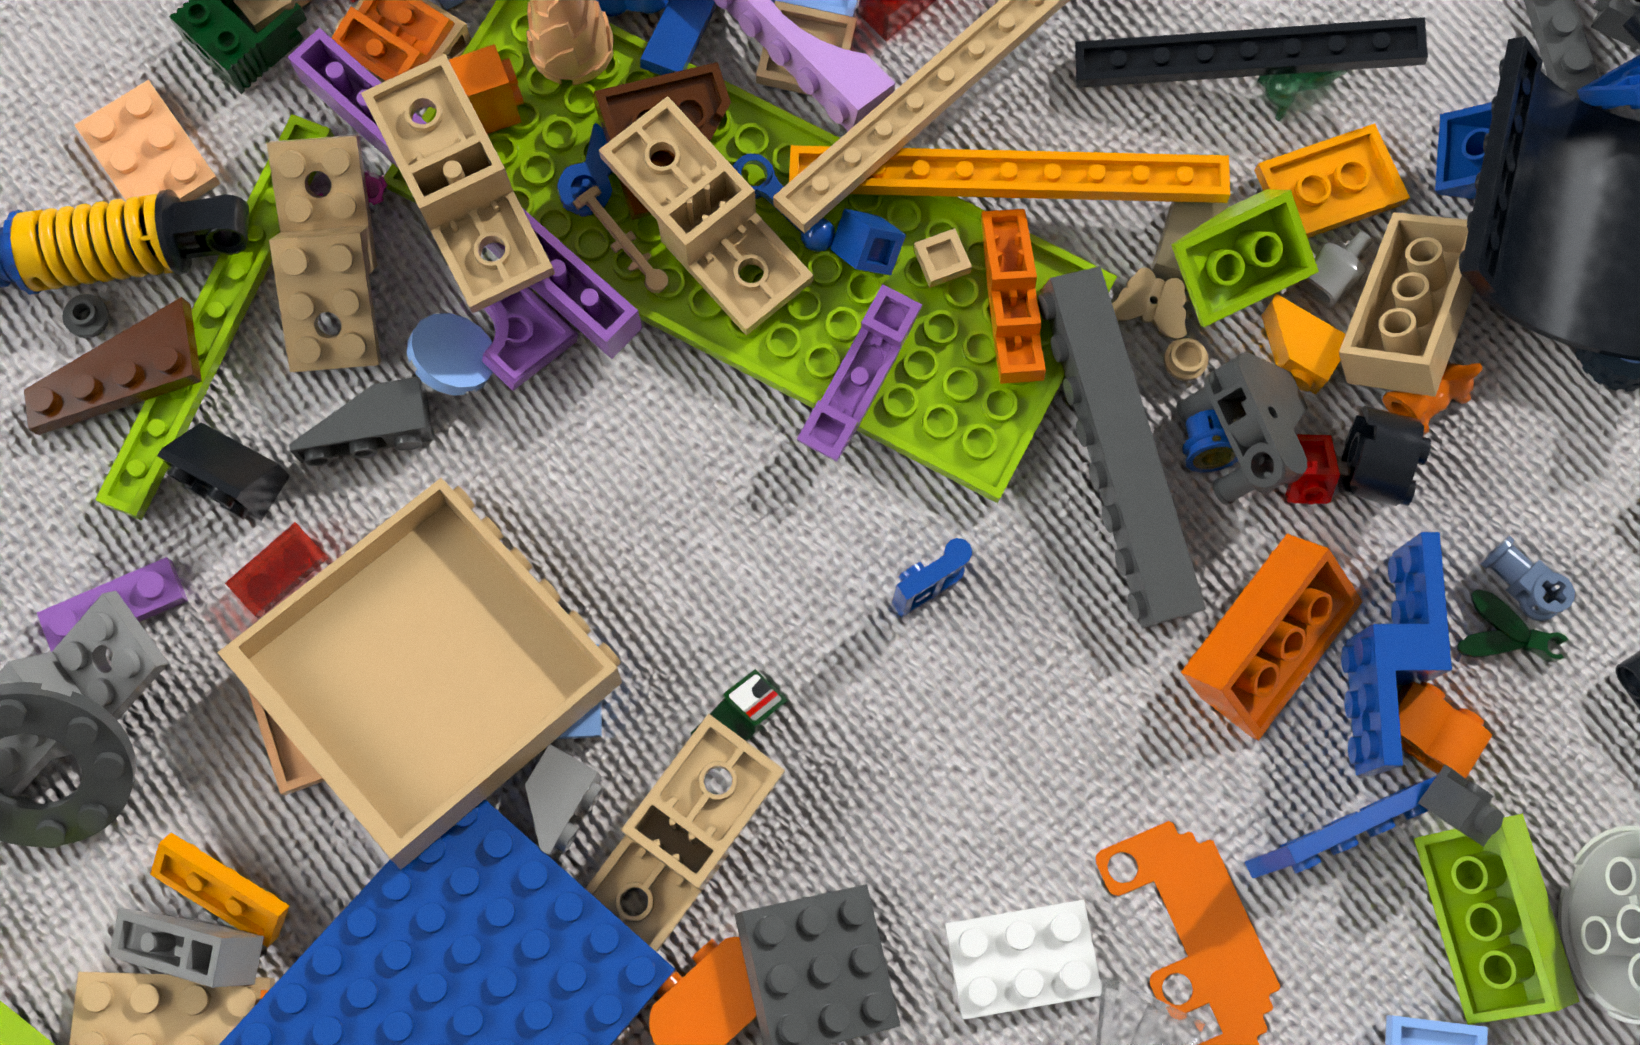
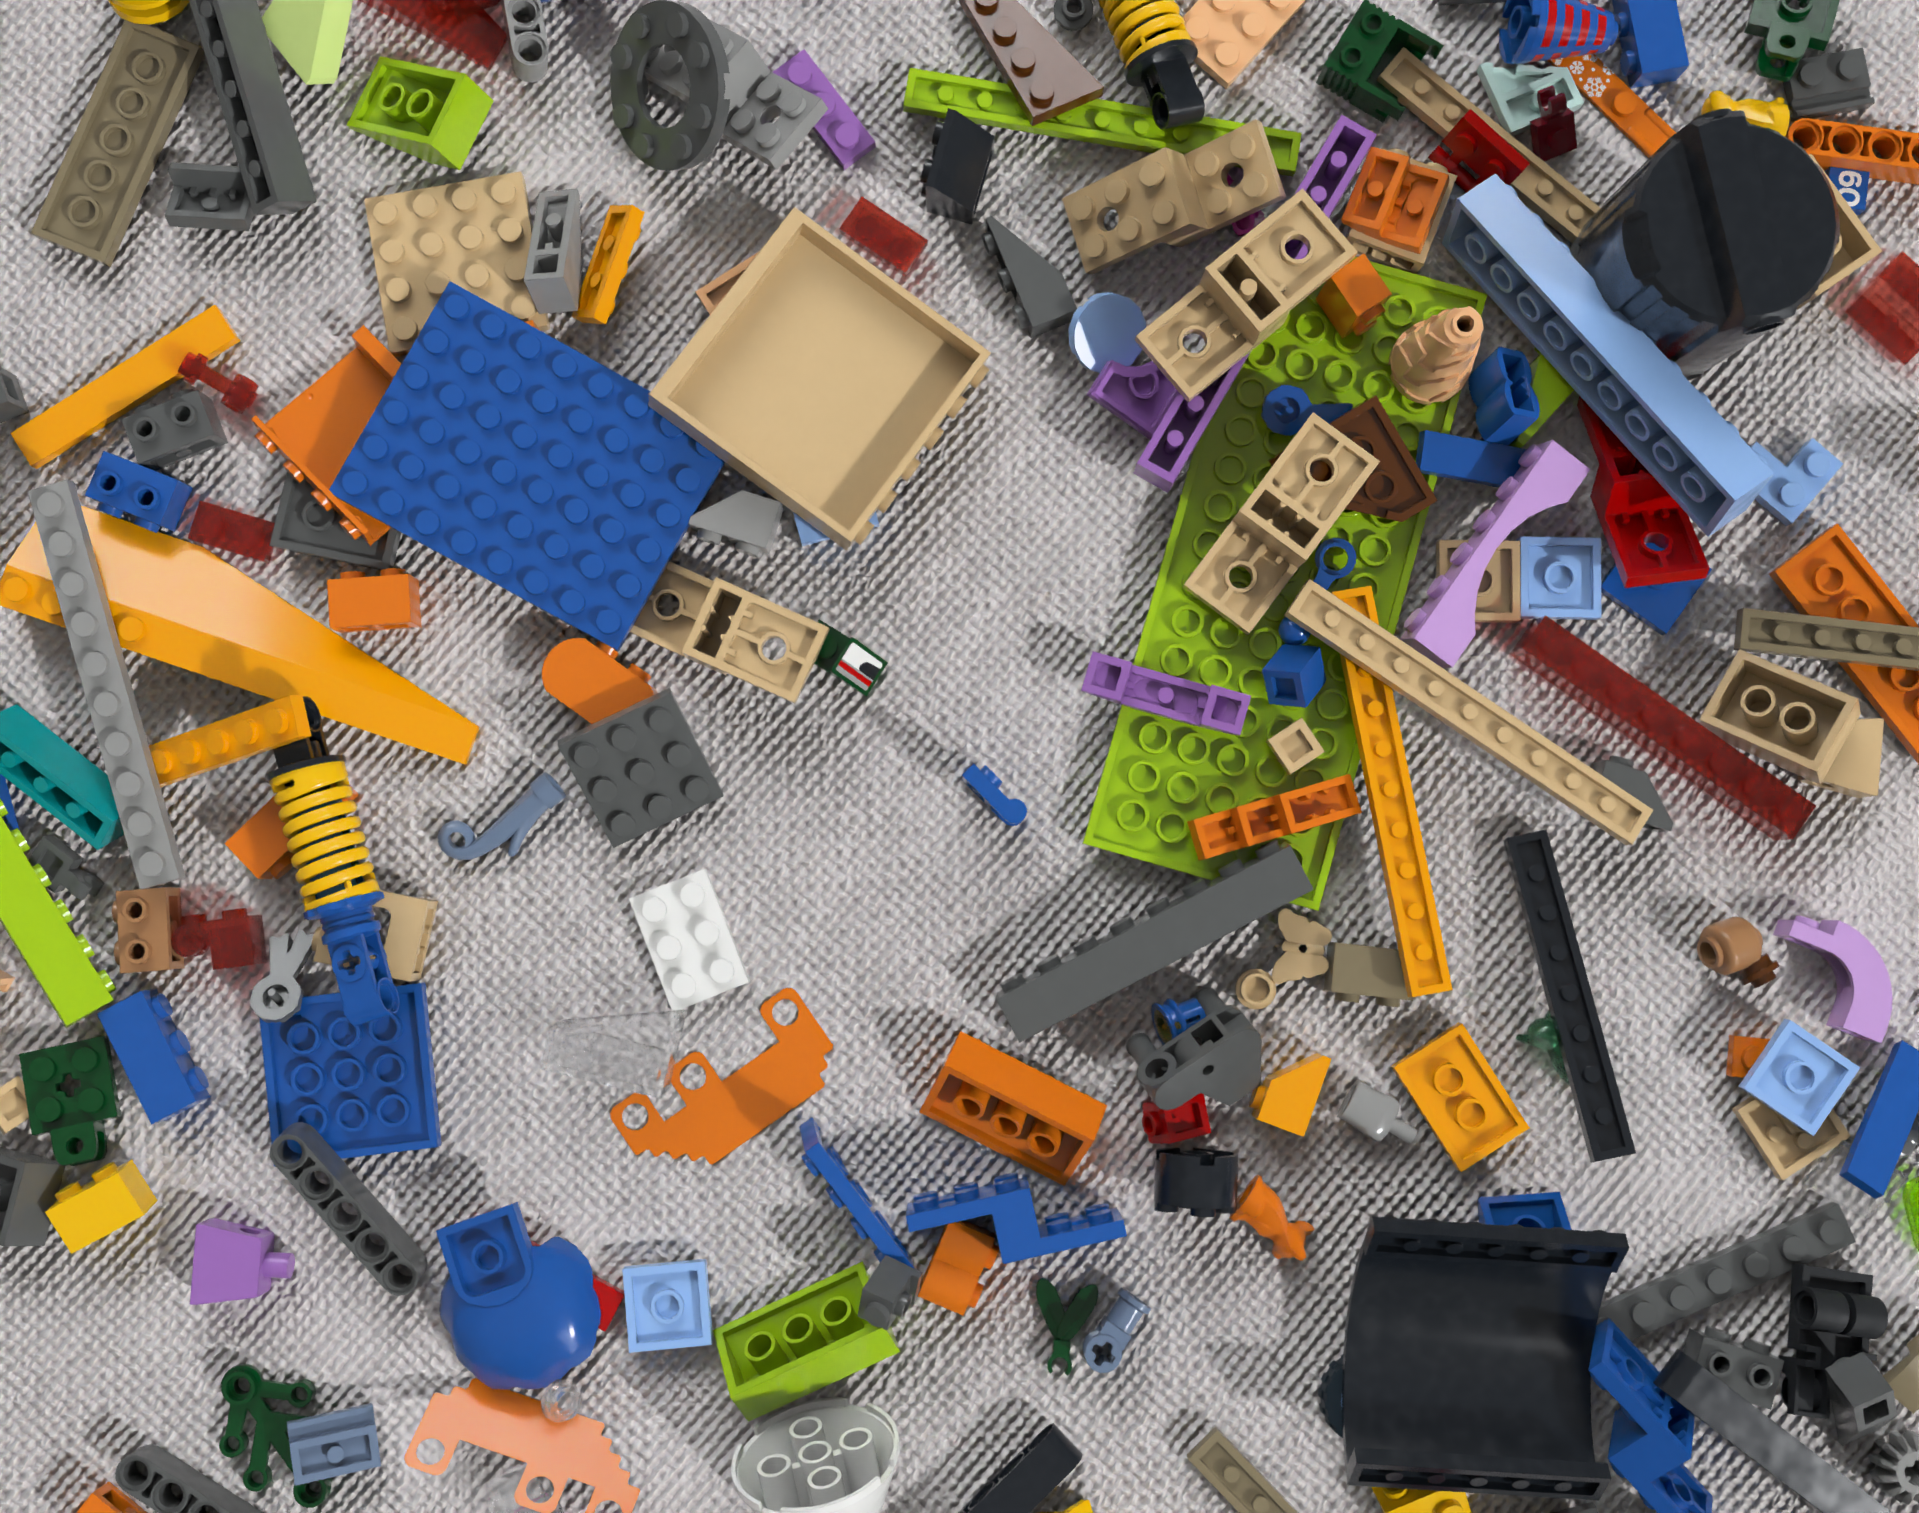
camera: 80 degrees right, 10 degrees up
(655, 279) = (1217, 494): tan piece -> none
(1244, 255) = (1359, 1020): lime slope -> none
(1409, 307) = (1342, 1181): tan brick -> none

